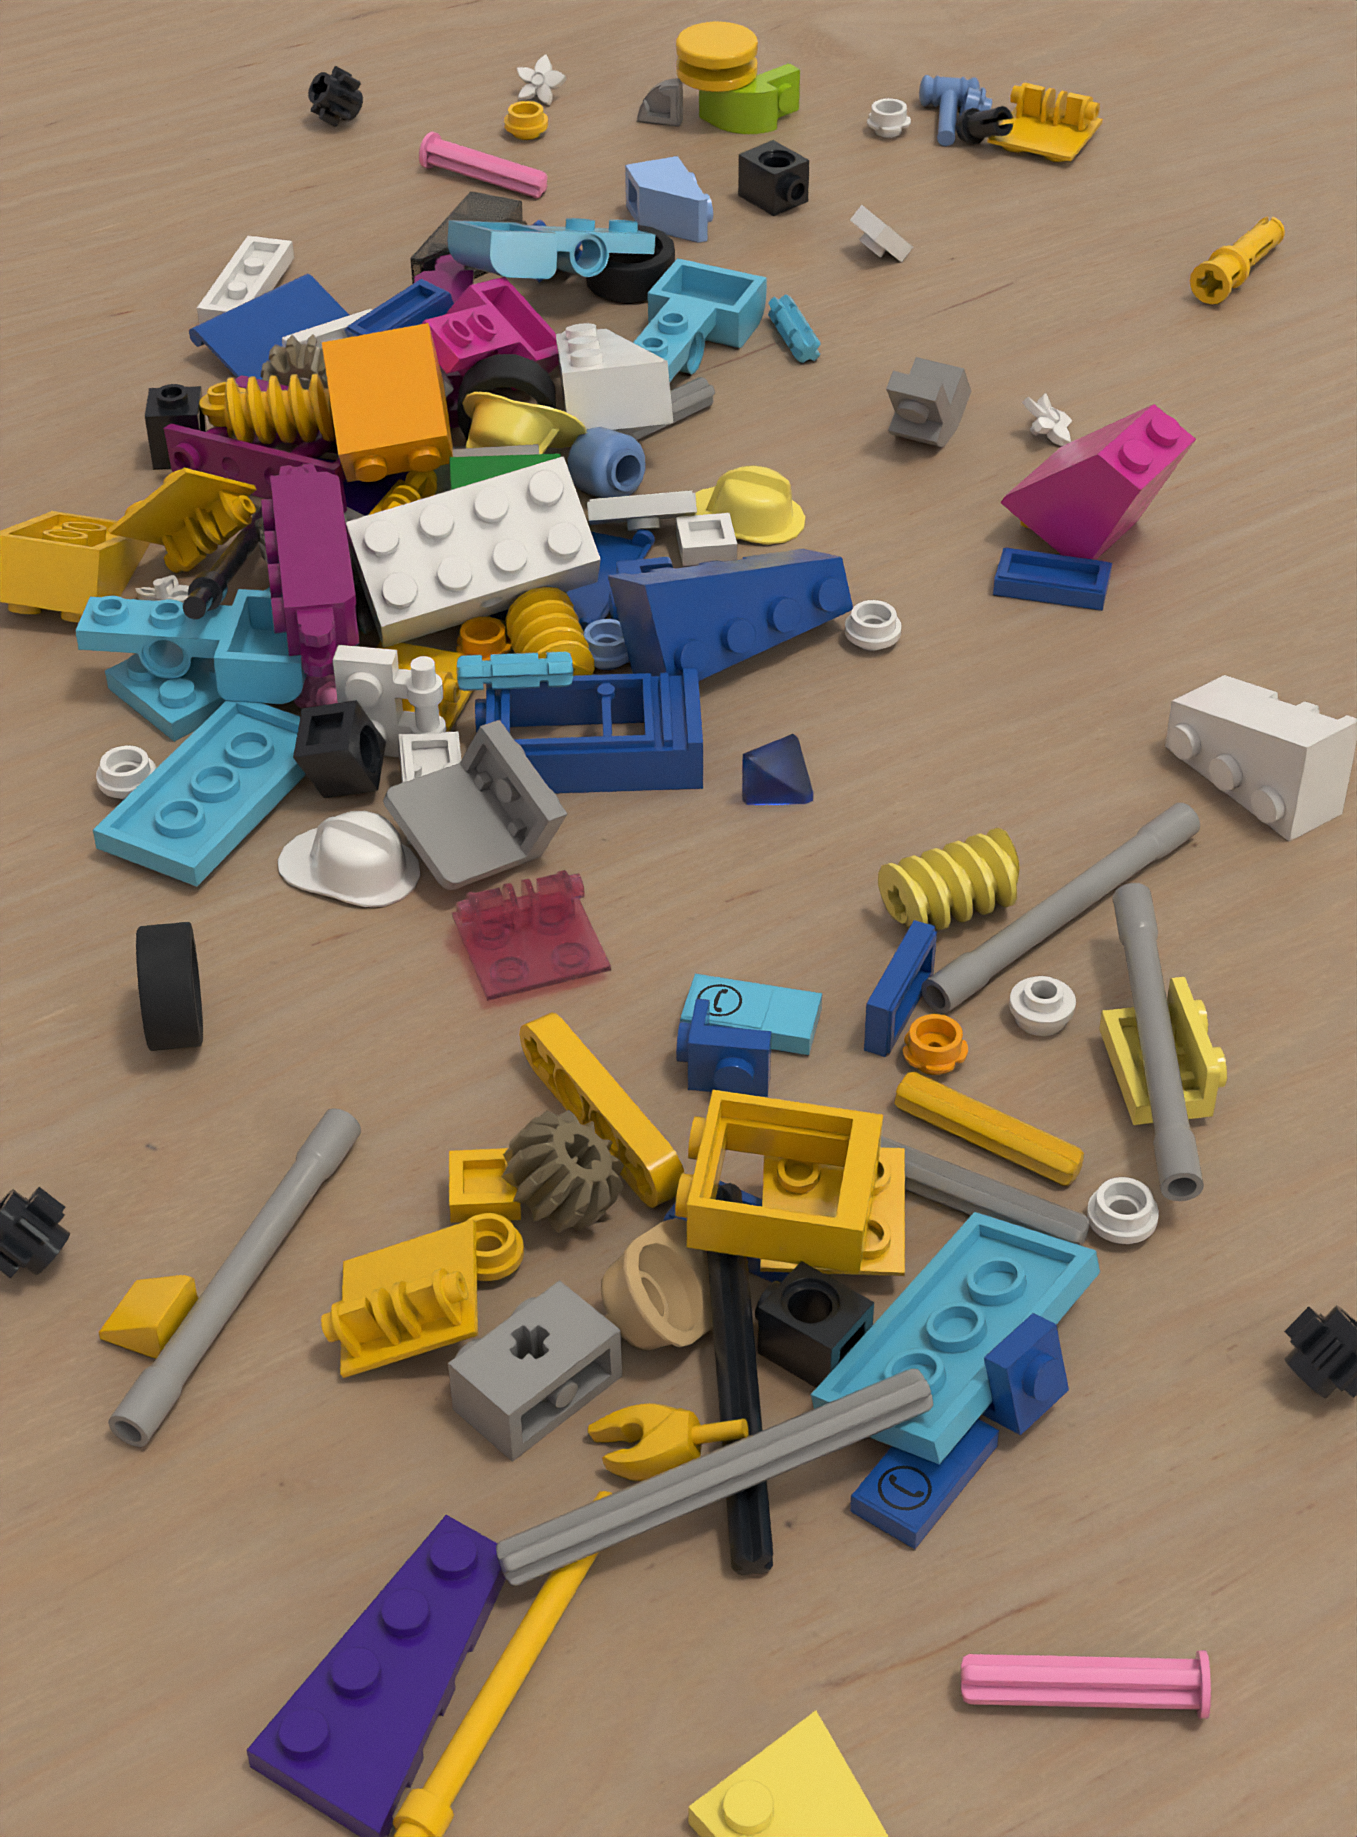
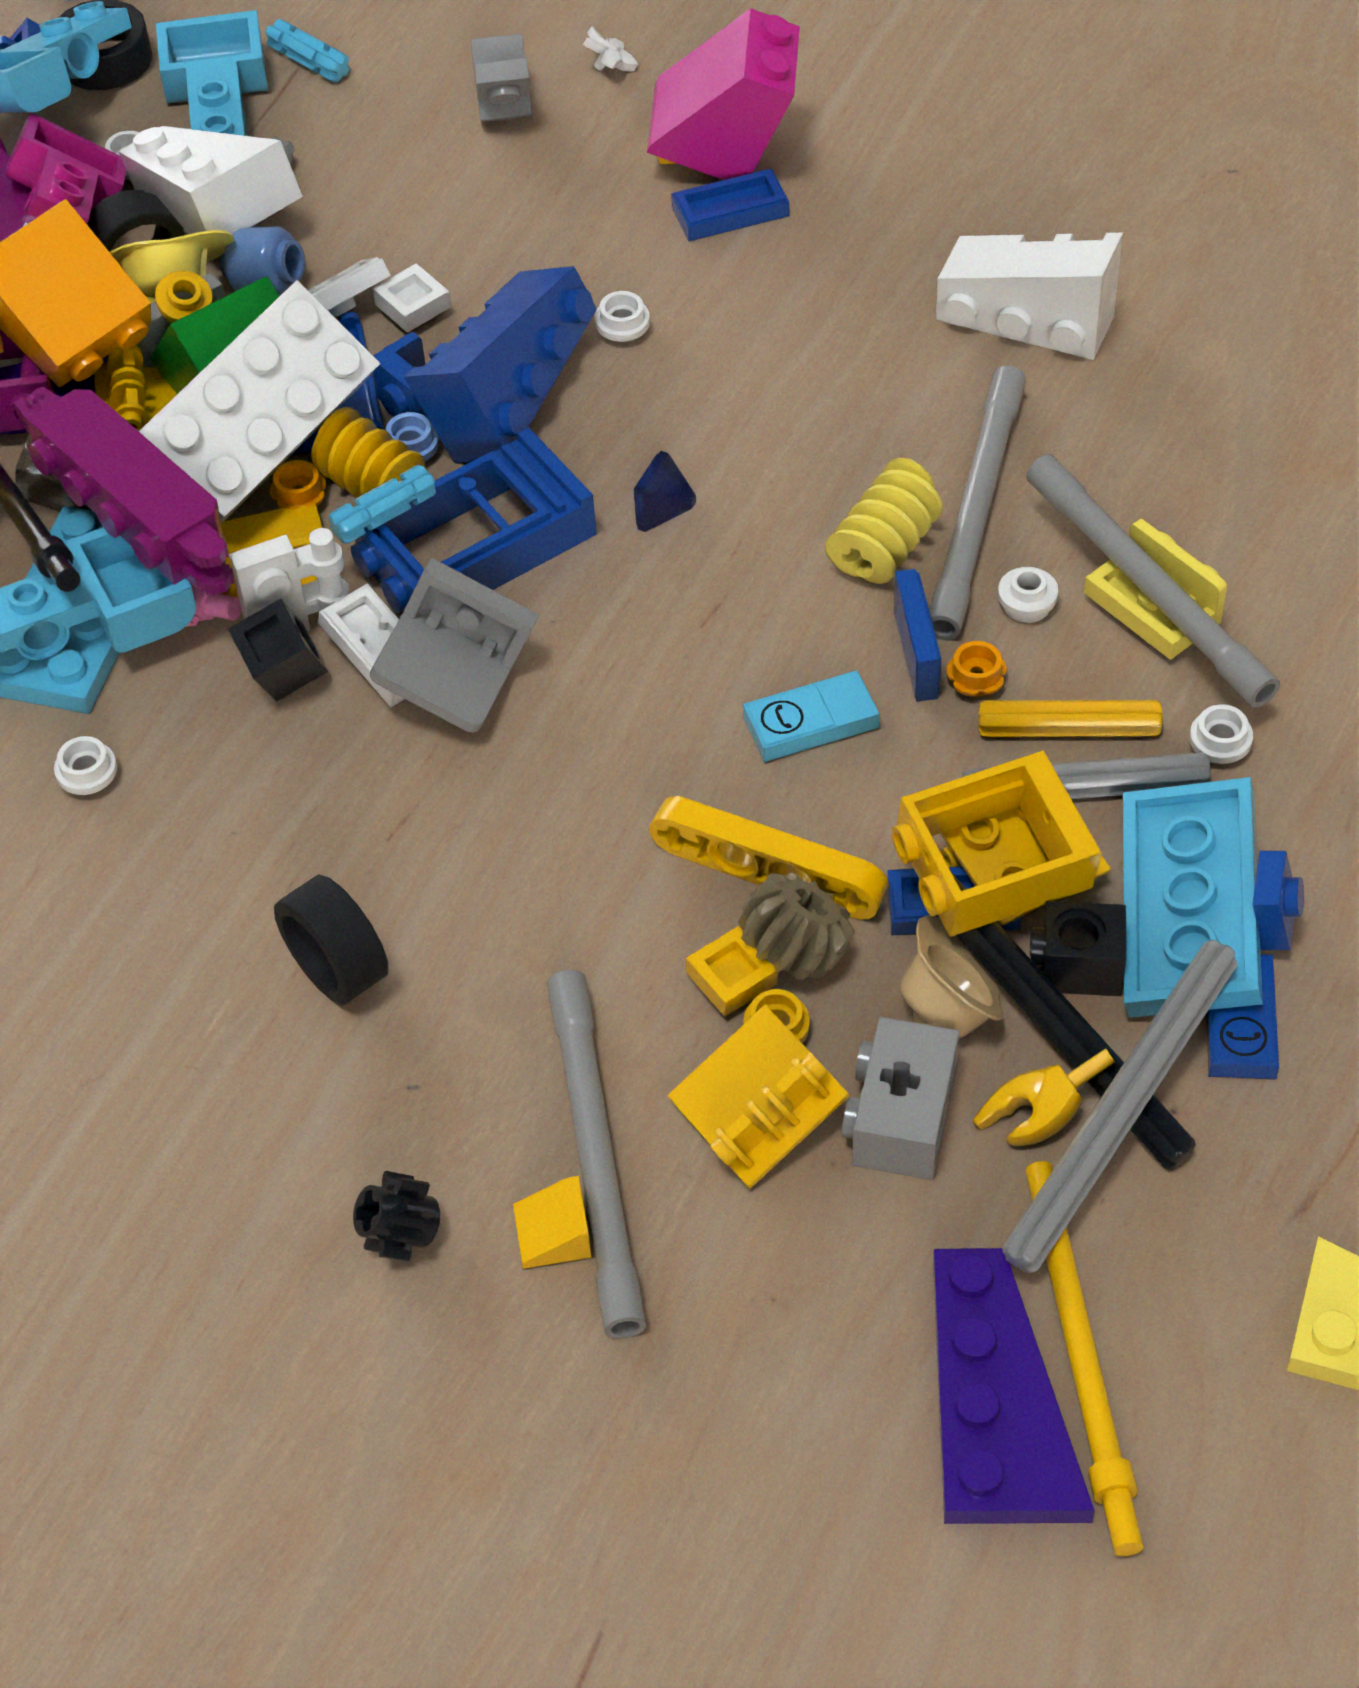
camera: 30 degrees left, 10 degrees up
(206, 793) = (182, 743): medium azure plate -> none
(352, 860) = (358, 748): white piece -> none
(492, 437) = (181, 281): none -> yellow plate
(531, 937) = (579, 740): clear pink hinge -> none
(724, 1056) = (827, 766): blue bracket -> none
(757, 504) = (423, 237): light yellow piece -> none

